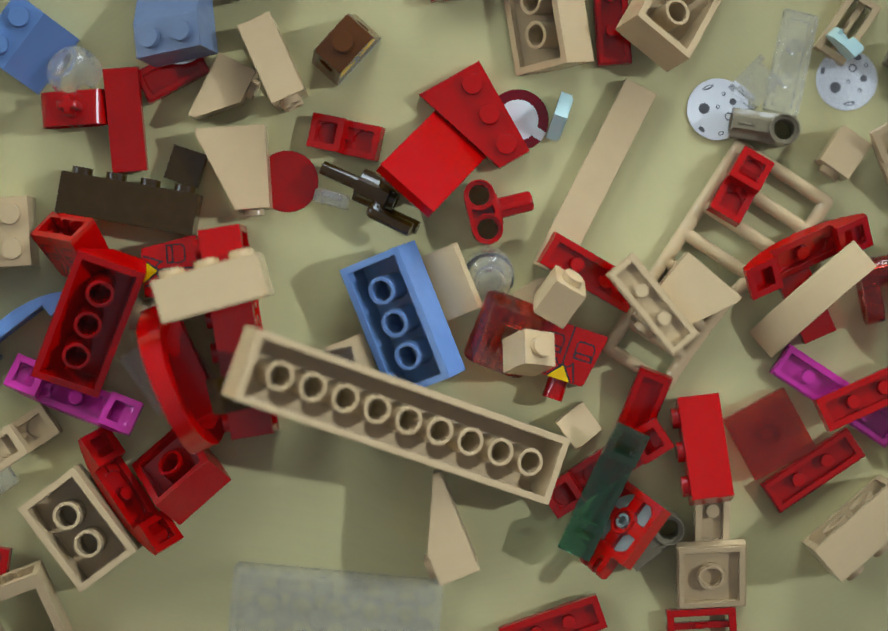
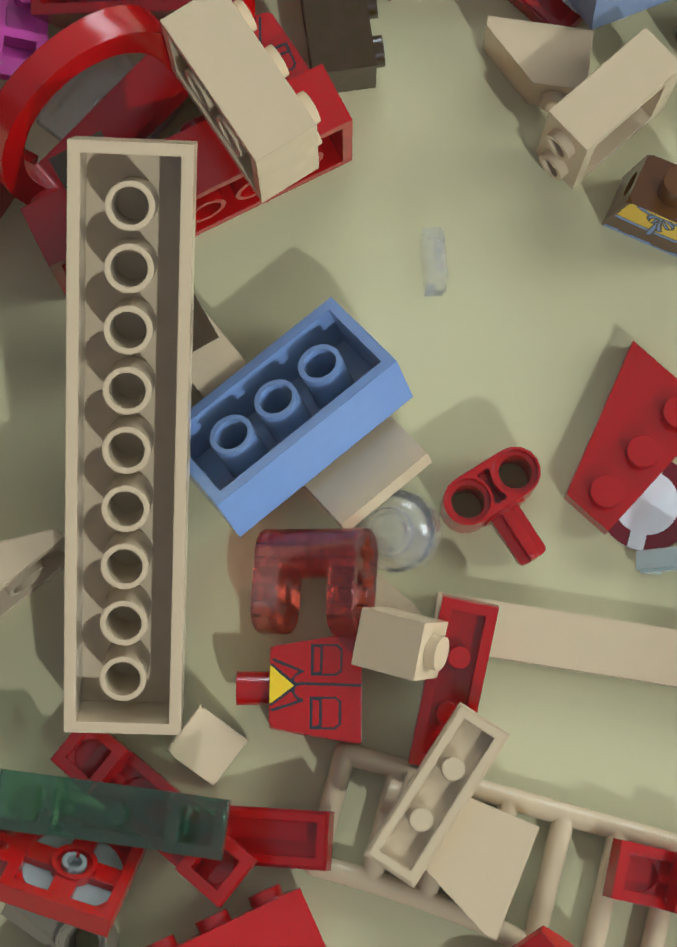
camera: 80 degrees right, 10 degrees down
(186, 166) = (410, 48): dark brown tile -> none
(241, 164) = (440, 118): tan slope -> none
(292, 181) = (437, 193): red sticker -> none
(345, 137) = (532, 256): red slope -> none
(376, 194) = (464, 332): dark brown plant -> none
(430, 164) = (537, 381): red tile -> none
(528, 352) = (296, 621): tan brick -> none

